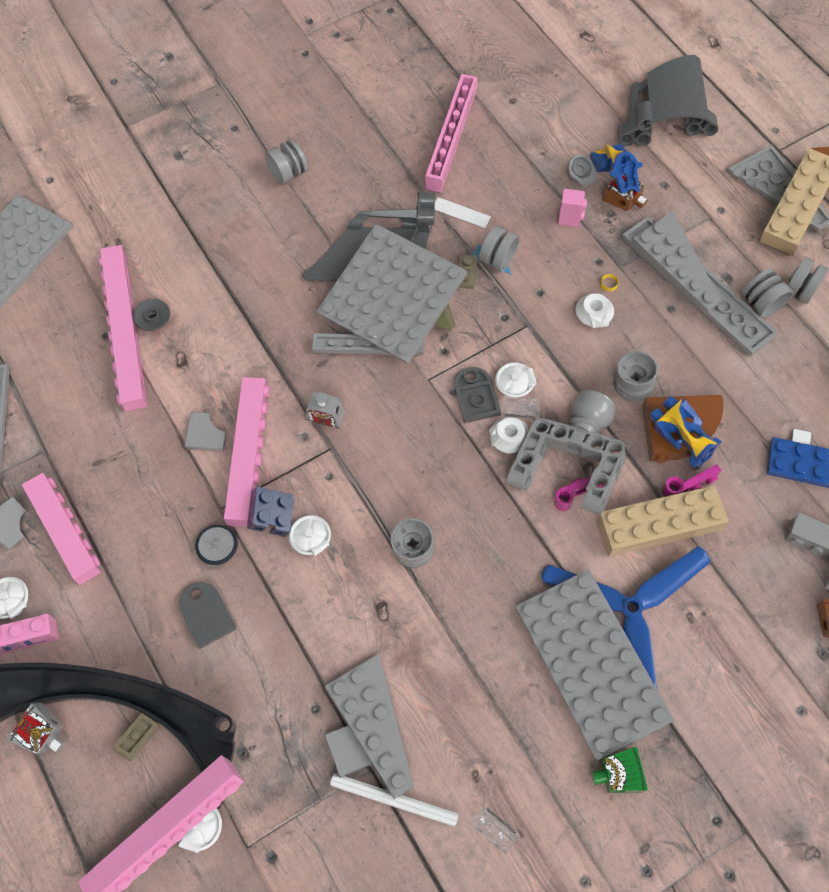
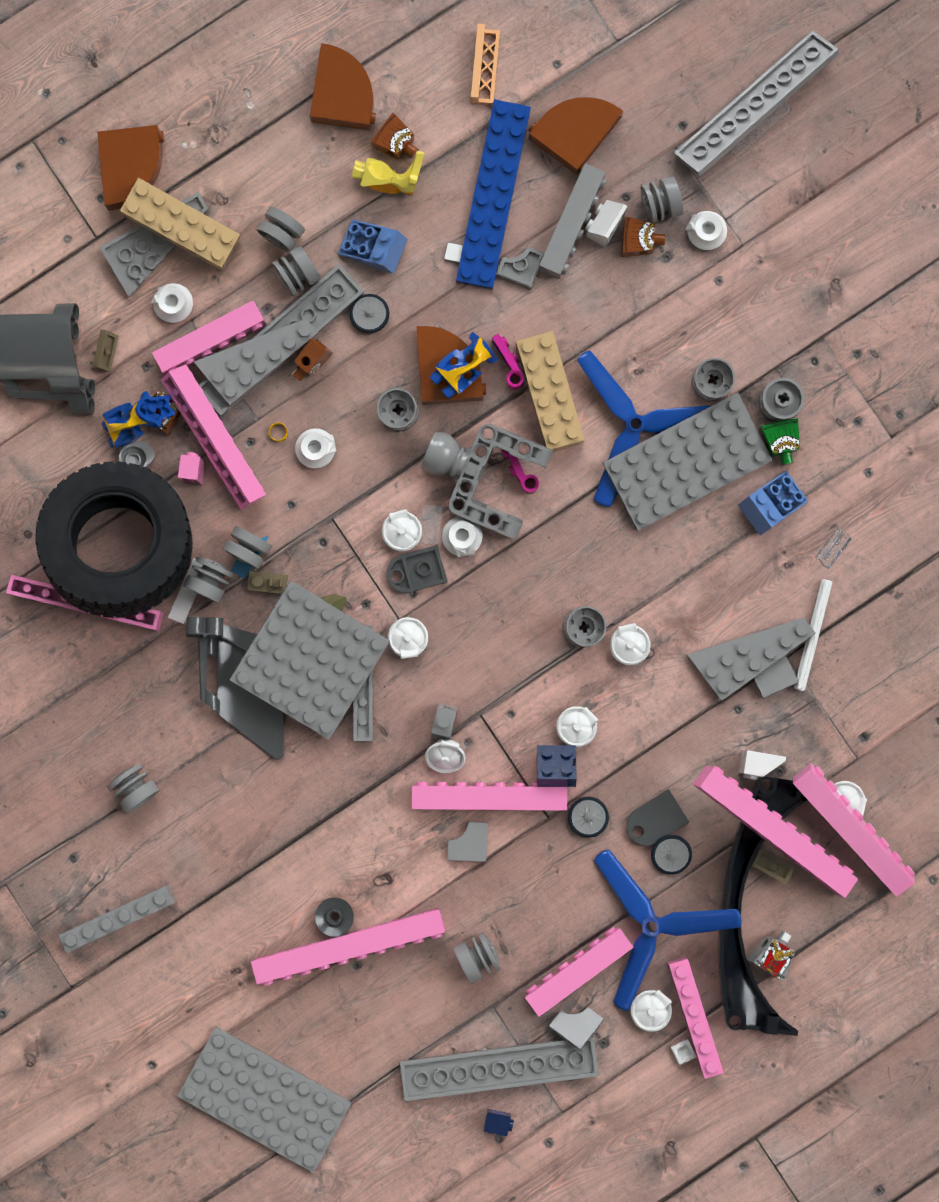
camera: 90 degrees left, 20 degrees up
(89, 430) = (477, 958): none -> light grey wheel
(93, 600) = (641, 910): none -> blue piece
(166, 627) = (671, 854): none -> light grey wheel
(168, 733) = (775, 831): none -> bright pink brick
(177, 153) = (117, 918): none -> light grey brick
(251, 722) = (758, 764): none -> white slope
(291, 409) = (445, 756): none -> white piece
(392, 592) = (630, 644): none -> white piece
(409, 382) = (408, 637): none -> white piece
(469, 218) = (208, 579): none -> light grey wheel
(519, 105) = (106, 488): none -> black tyre
(547, 759) = (772, 503): none -> medium blue slope
(601, 225) = (213, 436): none -> bright pink brick
(677, 151) = (105, 350): none -> dark tan plate
(679, 767) = (783, 389): none -> light grey wheel
(683, 306) = (317, 353): none -> dark orange torso
(687, 680) = (717, 369): none -> light grey wheel
(696, 227) = (210, 338): none -> bright pink brick
(726, 201) = (172, 302): none -> white piece
(730, 359) = (369, 313): none -> light grey wheel
(791, 499) = (522, 268): none -> light grey tile
(799, 364) = (373, 245): none -> medium blue slope

